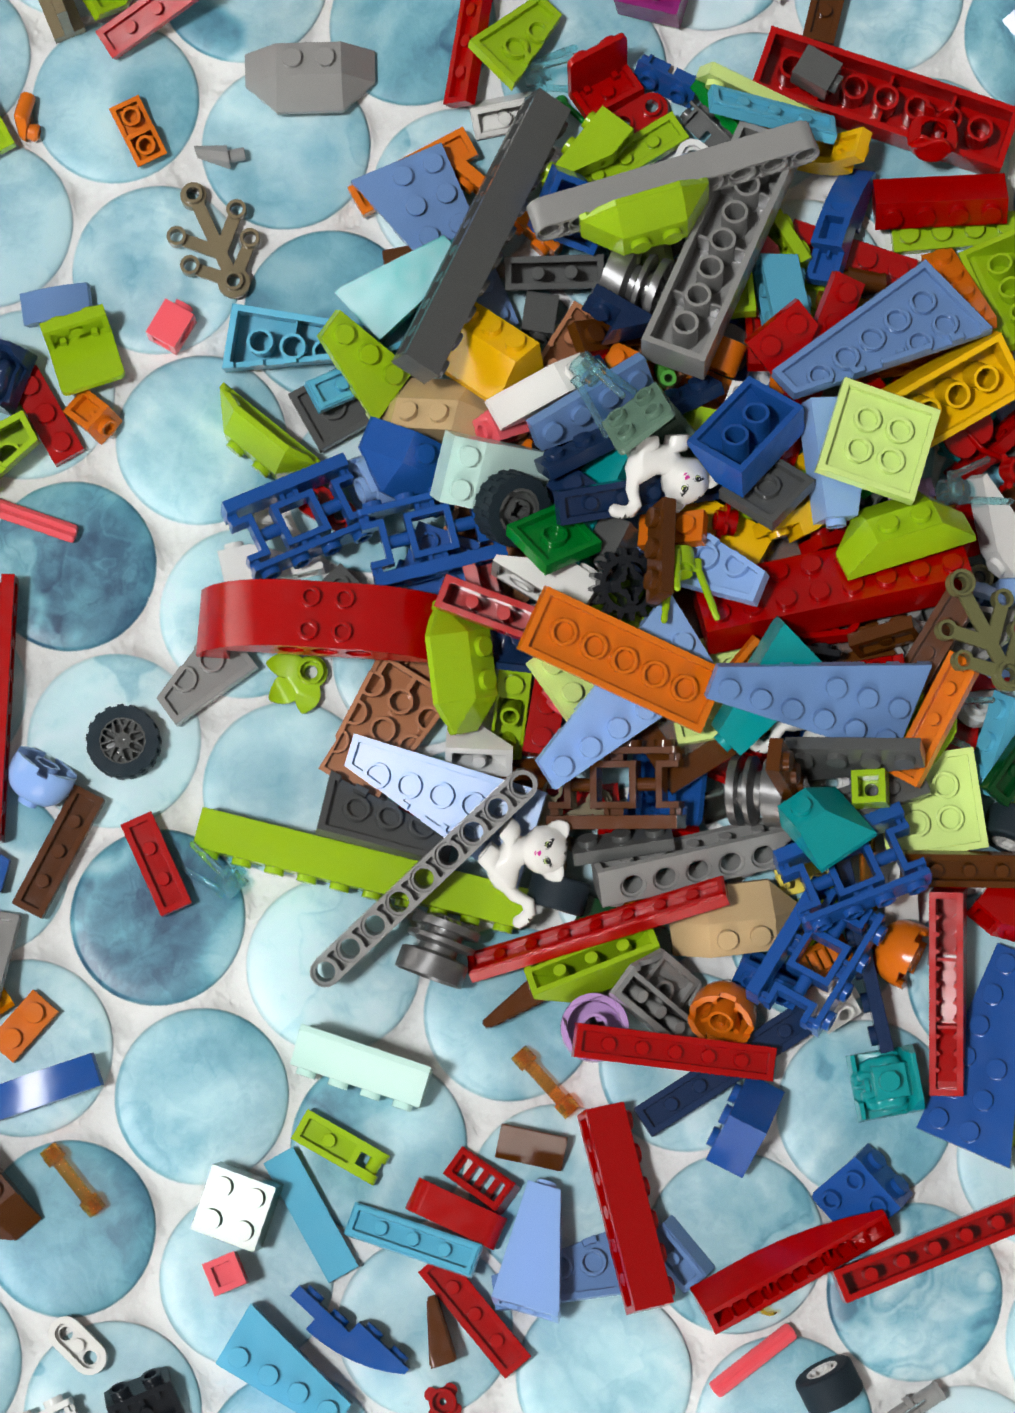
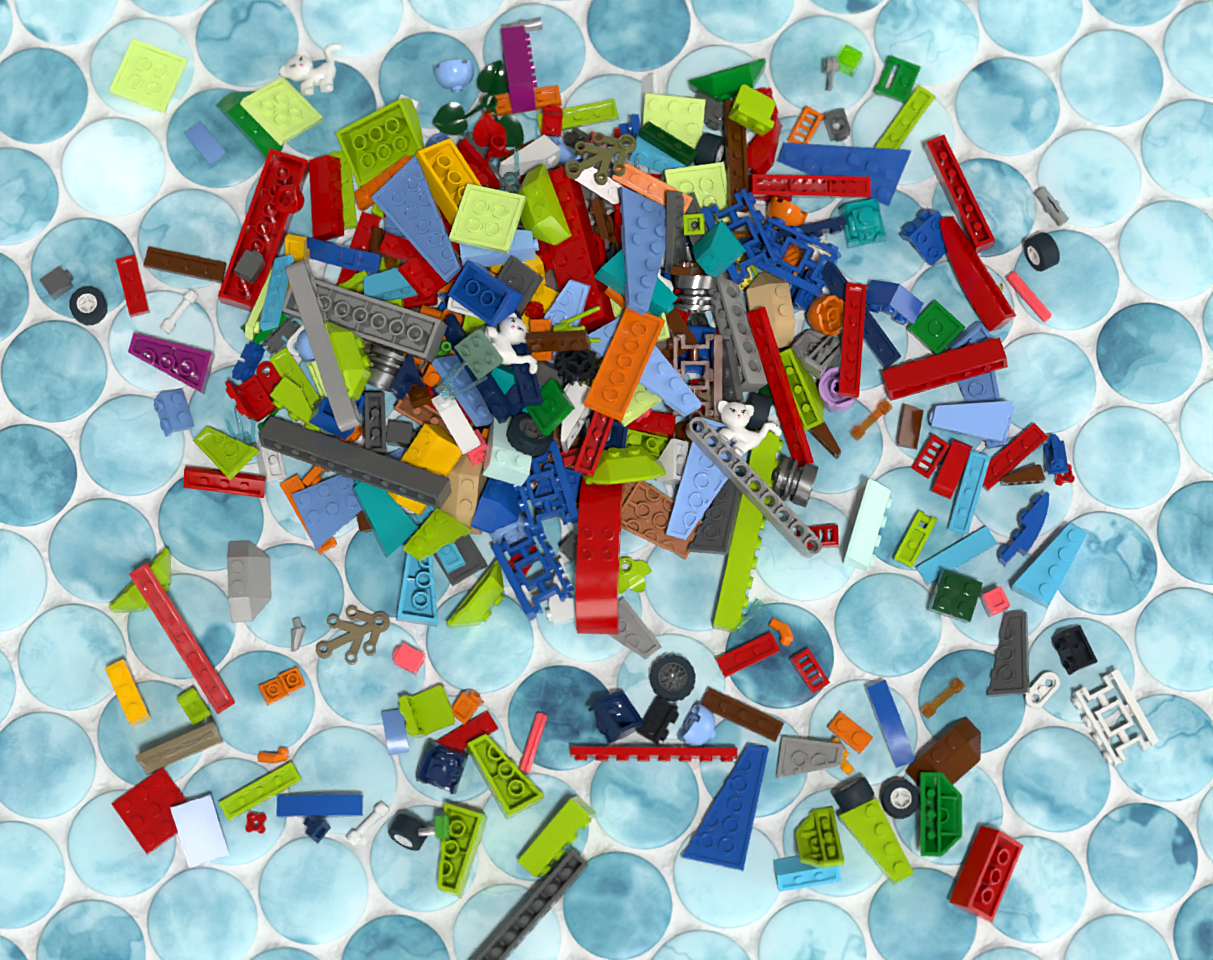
camera: 90 degrees left, 5 degrees down
(56, 716) = (658, 720): none -> black bracket
(61, 648) = (616, 716): none -> dark blue brick
(133, 1298) = (1012, 658): none -> dark grey wing
(153, 948) = (815, 666): none -> red slope
(196, 925) = (784, 629): none -> orange arm
(351, 1013) = (825, 529): none -> red slope
(471, 1389) = (1055, 455): none -> blue hinge
(700, 1199) = (936, 328): none -> green plate

